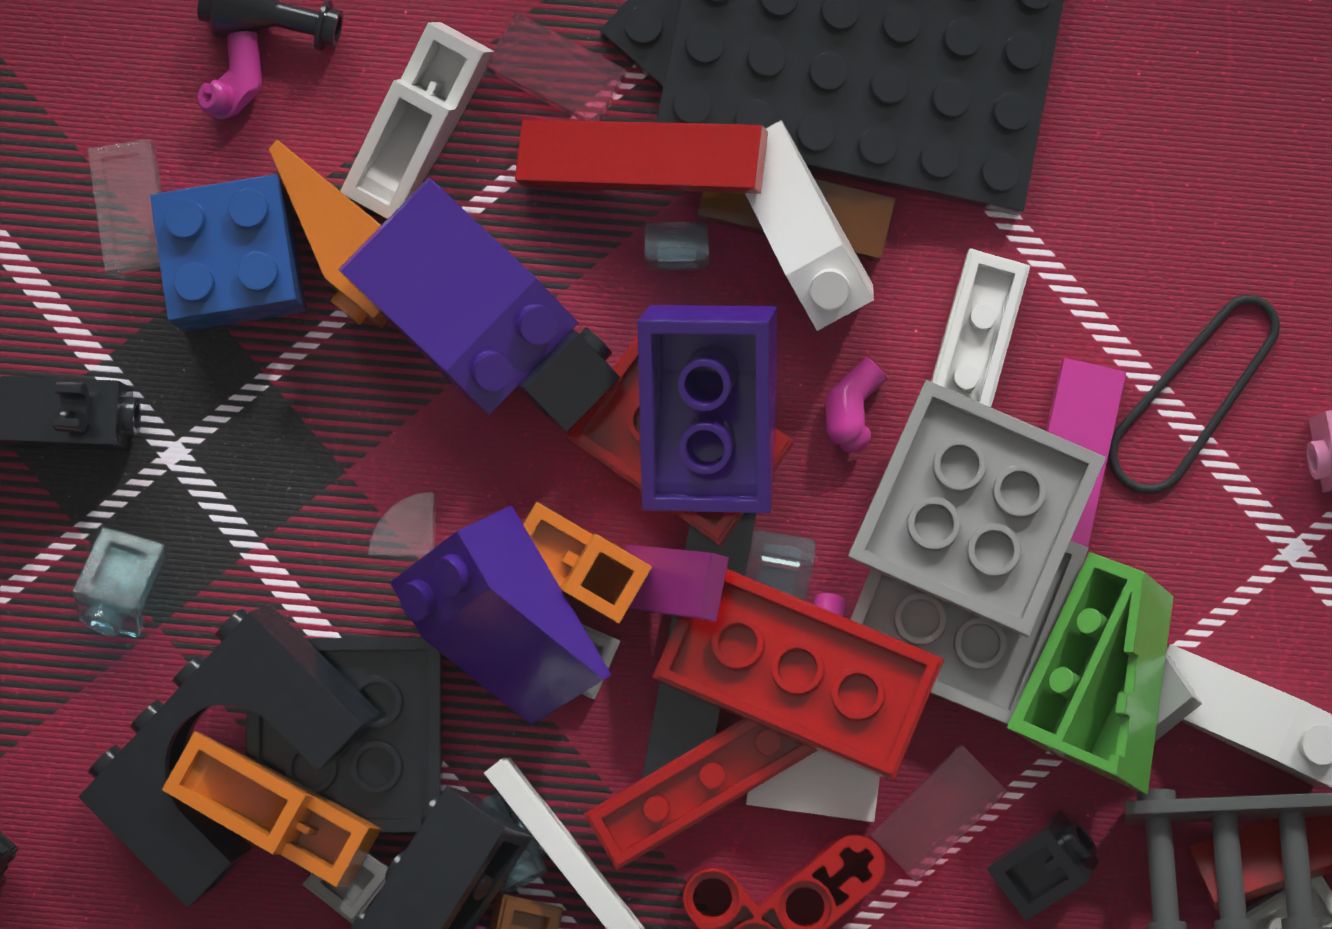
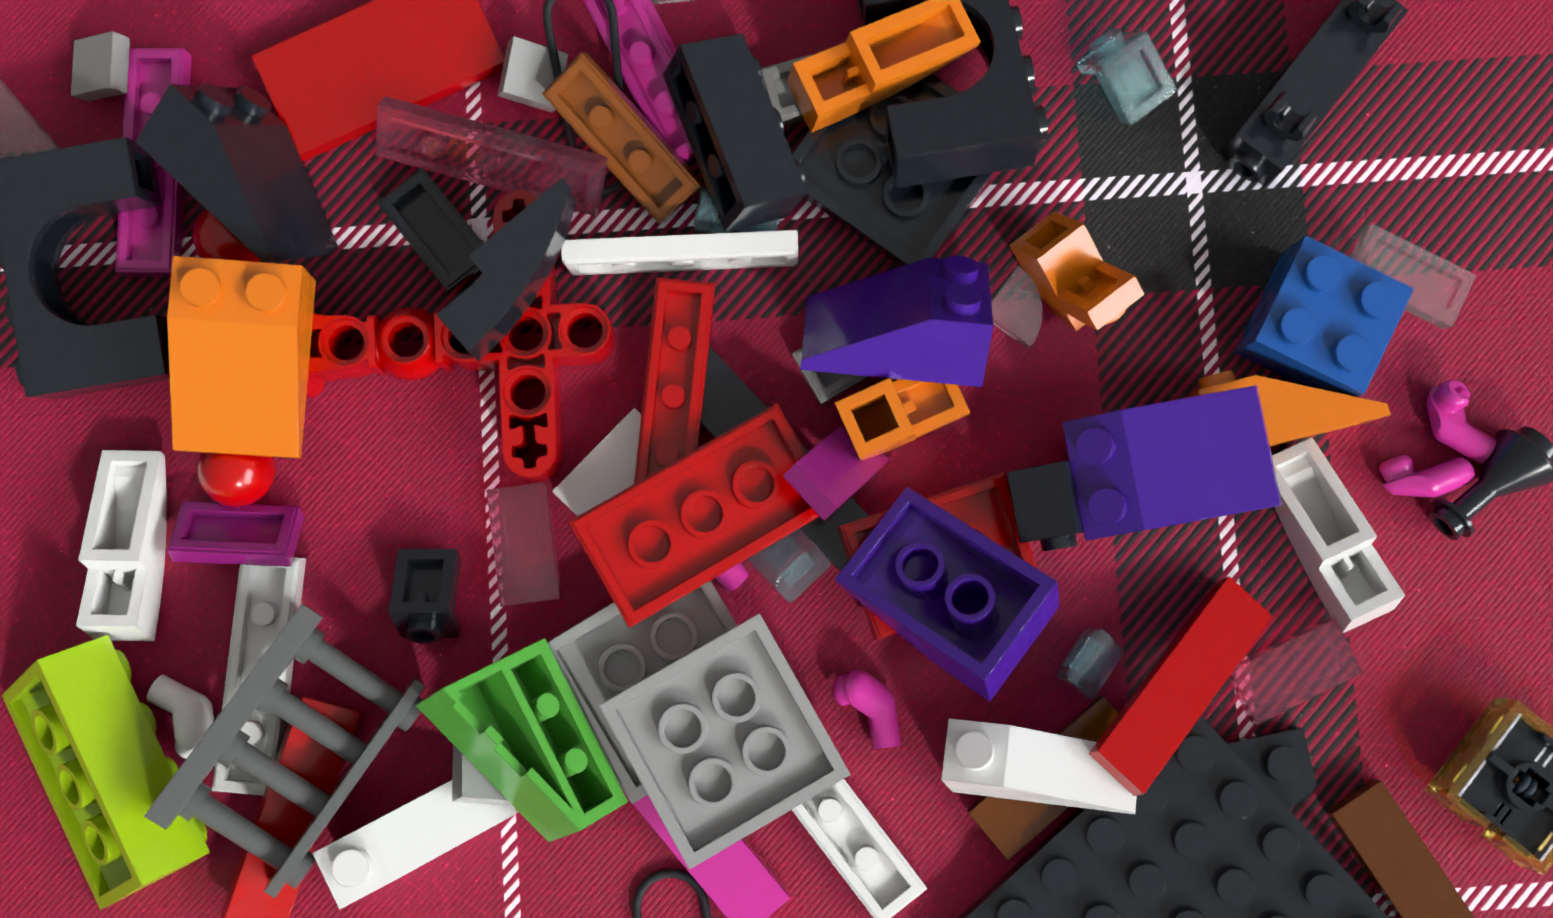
camera: 125 degrees right, 0 degrees up
(309, 67) = (1431, 482): none -> dark pink arm
(343, 500) = (1072, 273): none -> orange brick

